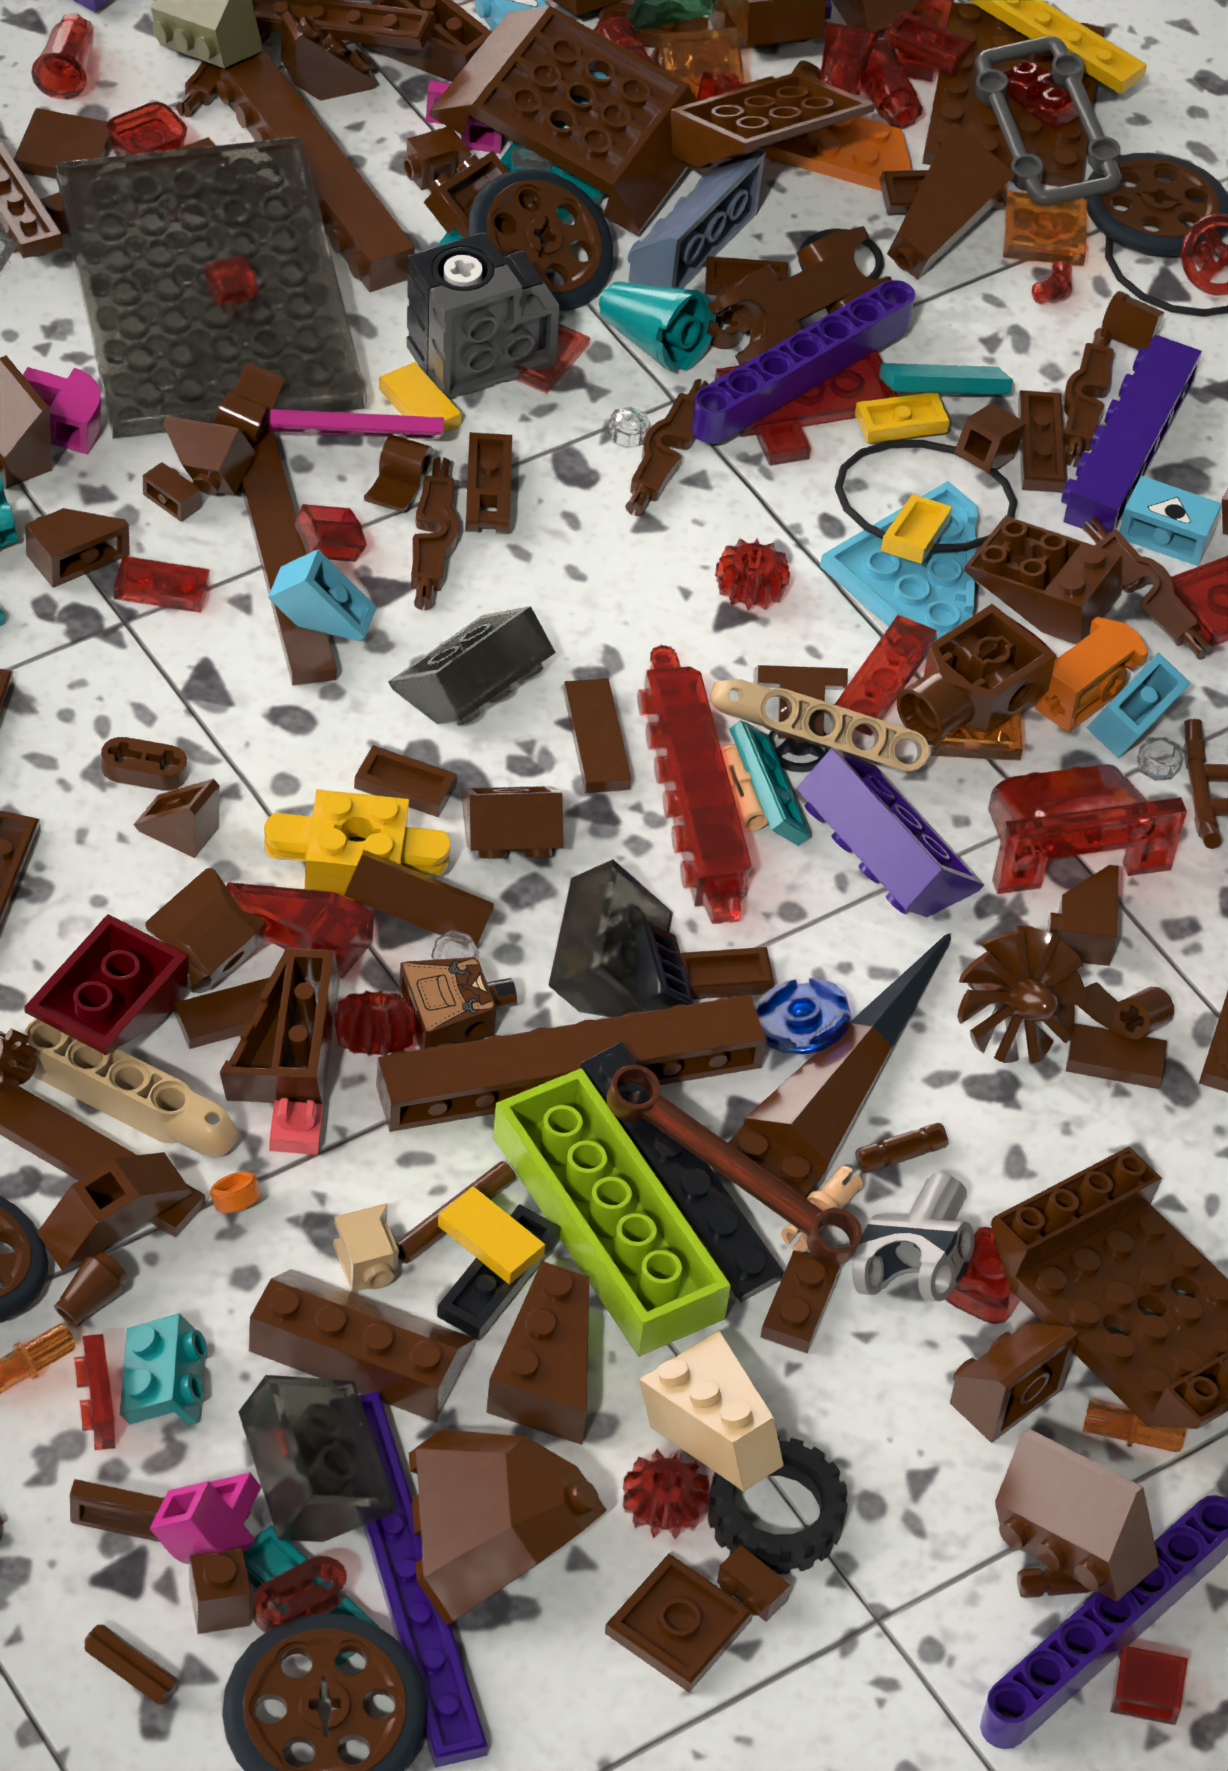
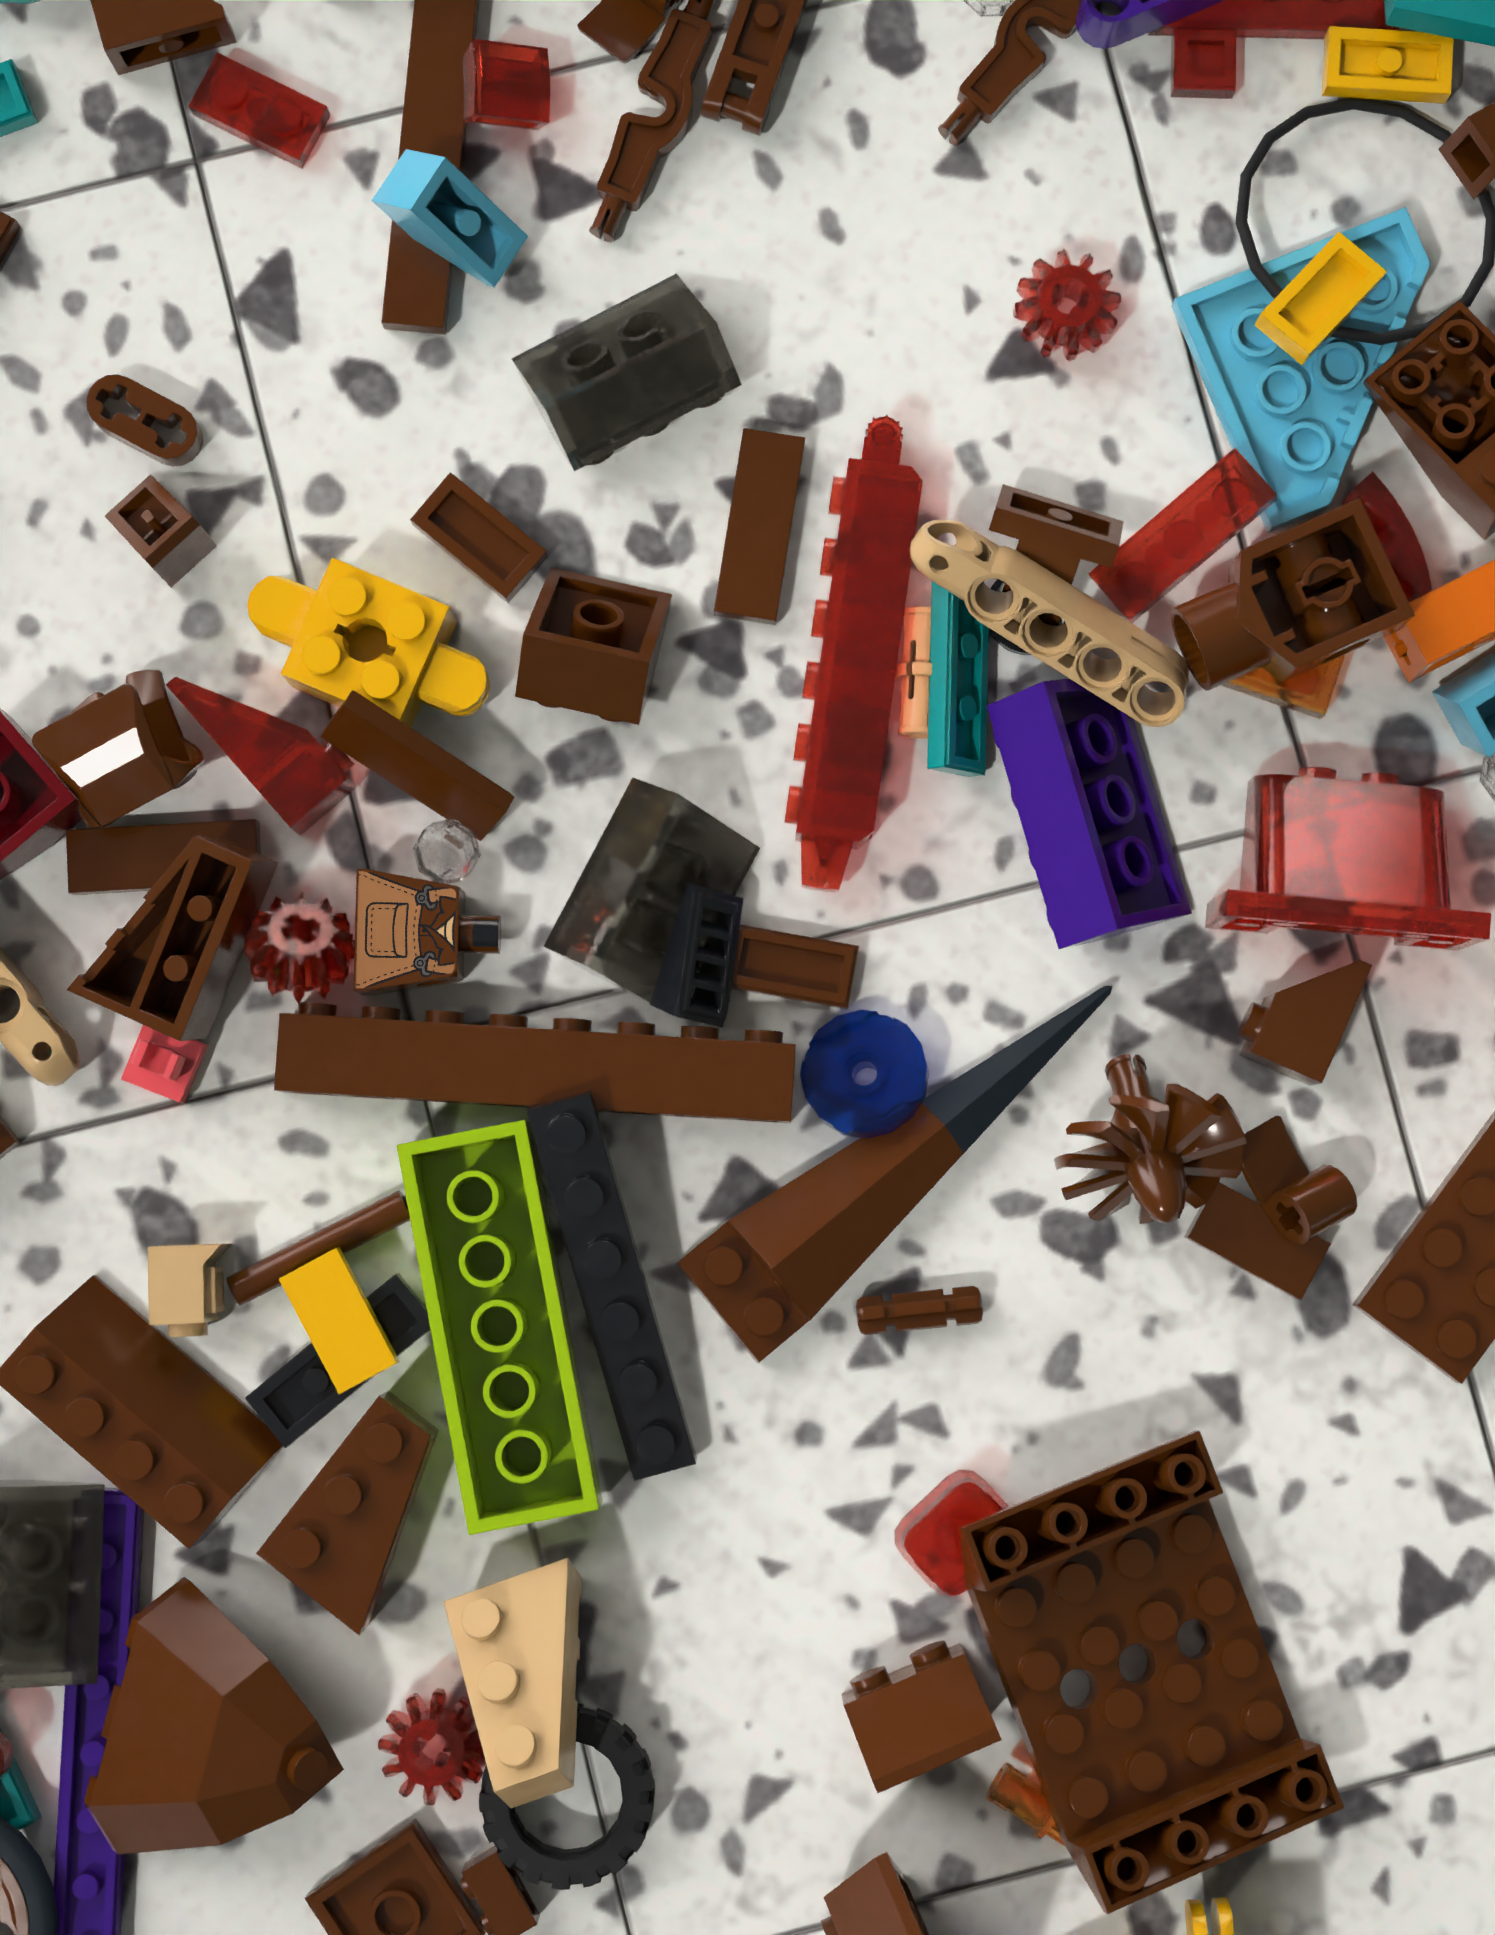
camera: 25 degrees right, 35 degrees up
(235, 1192) = (55, 1148): orange tile -> none
(734, 1165) = (671, 1322): copper piece -> none
(800, 1302) = (706, 1502): reddish brown plate -> none
(832, 1195) = (781, 1377): light nougat pin -> none
(922, 1242) = (879, 1480): light grey connector -> none

